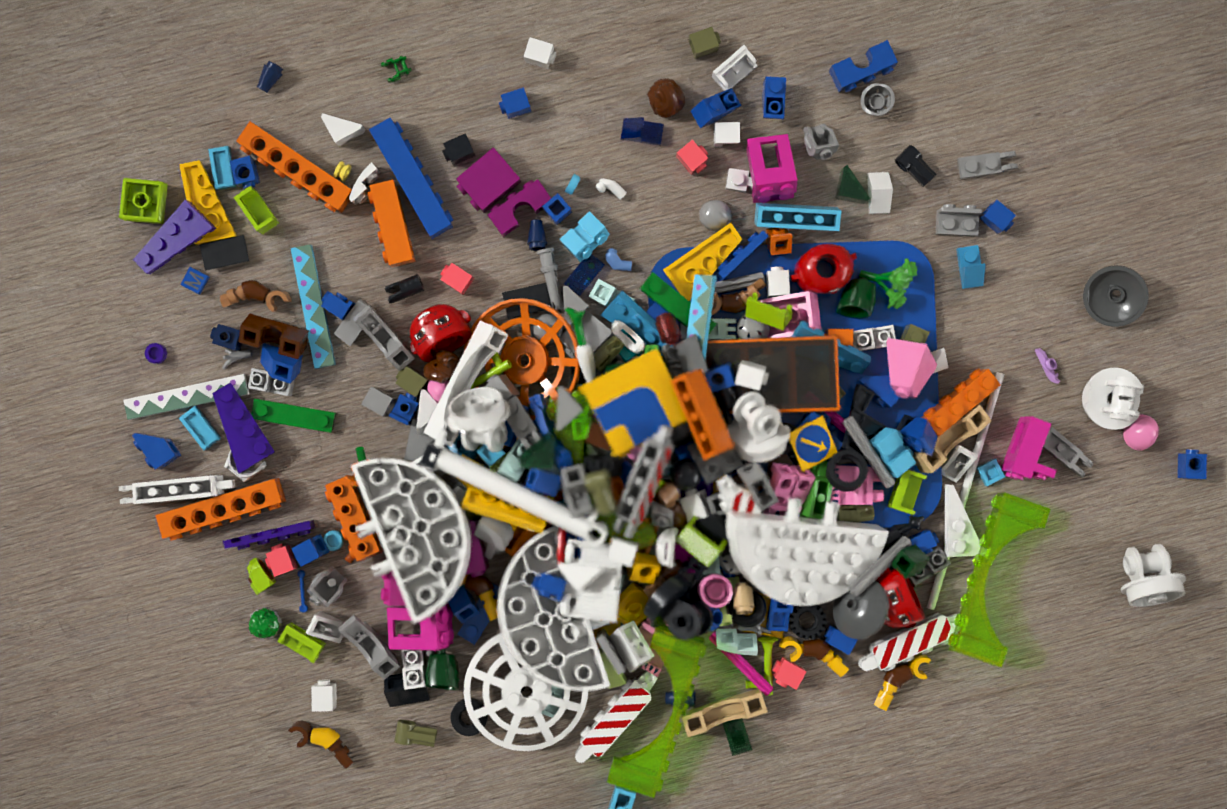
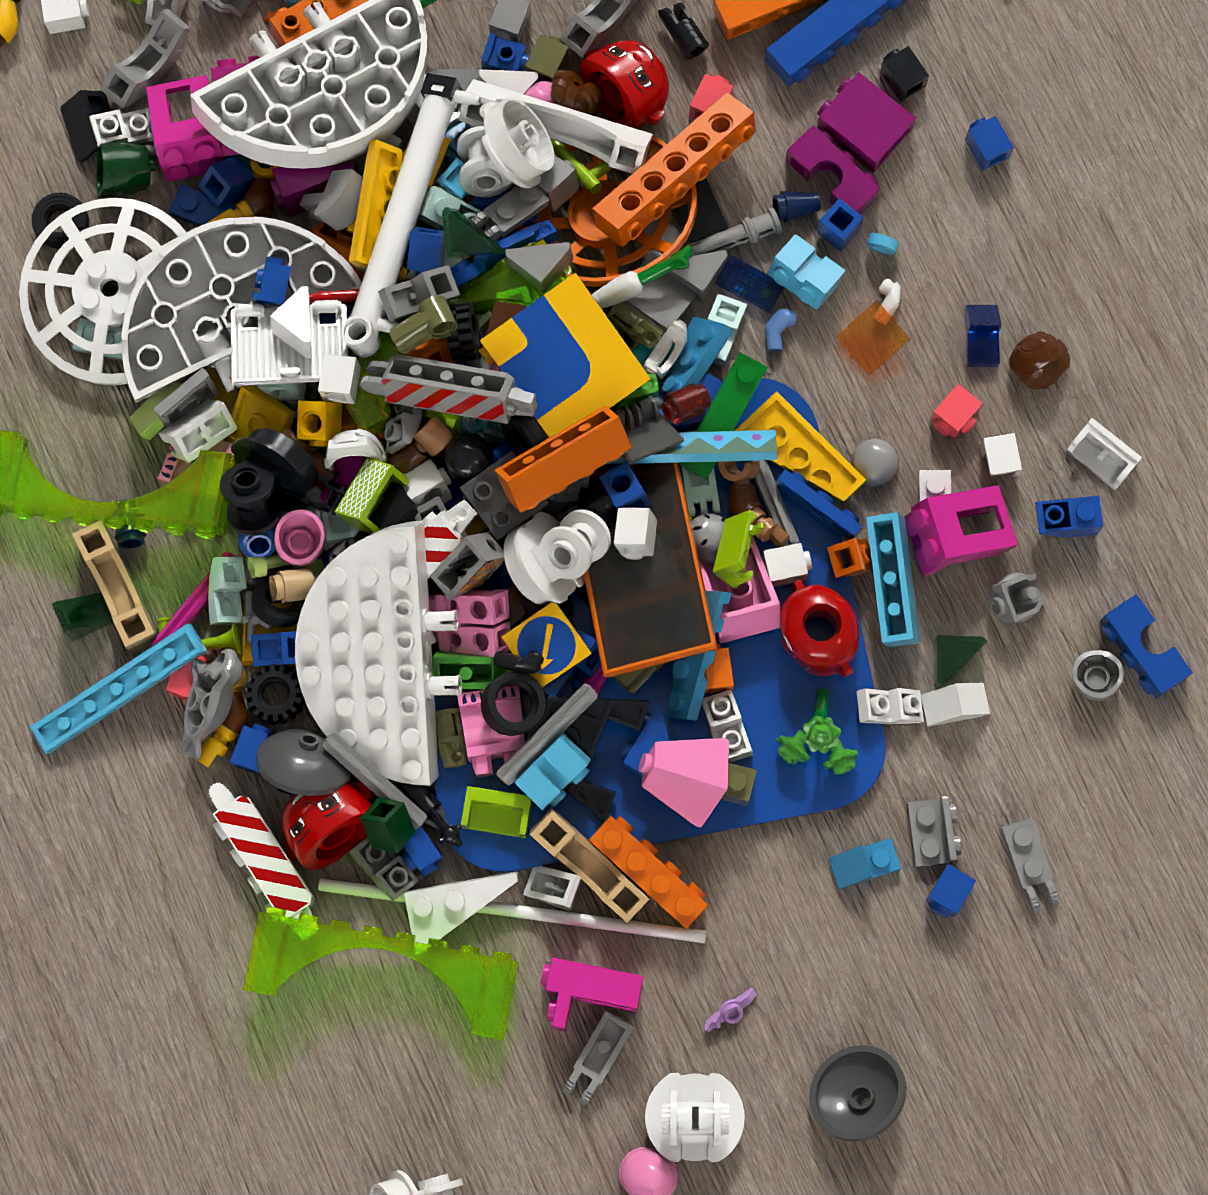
camera: 80 degrees right, 10 degrees down
(410, 733) = (25, 138): olive piece -> none
(474, 271) = (674, 170): none -> orange brick
(539, 53) = (1070, 165): white brick -> none
(616, 717) = (87, 432): white hinge -> none
(634, 201) = (873, 337): none -> clear orange piece
(704, 42) = (1135, 402): olive brick -> none
(715, 107) = (1038, 434): blue slope -> none
(790, 719) = (118, 688): none -> medium azure tile
(809, 663) = (209, 699): none -> light grey animal
(823, 465) = (512, 662): none -> black arm
(857, 299) = (782, 687): dark green helmet -> none
(876, 233) = (890, 706): none -> white slope
(897, 677) = (206, 846): yellow piece -> none
(911, 161) = (1009, 747): black piece -> none
(919, 436) = (584, 810): blue slope -> none
(941, 360) = (710, 832): white slope -> none
(990, 472) = (547, 944): medium azure tile -> none

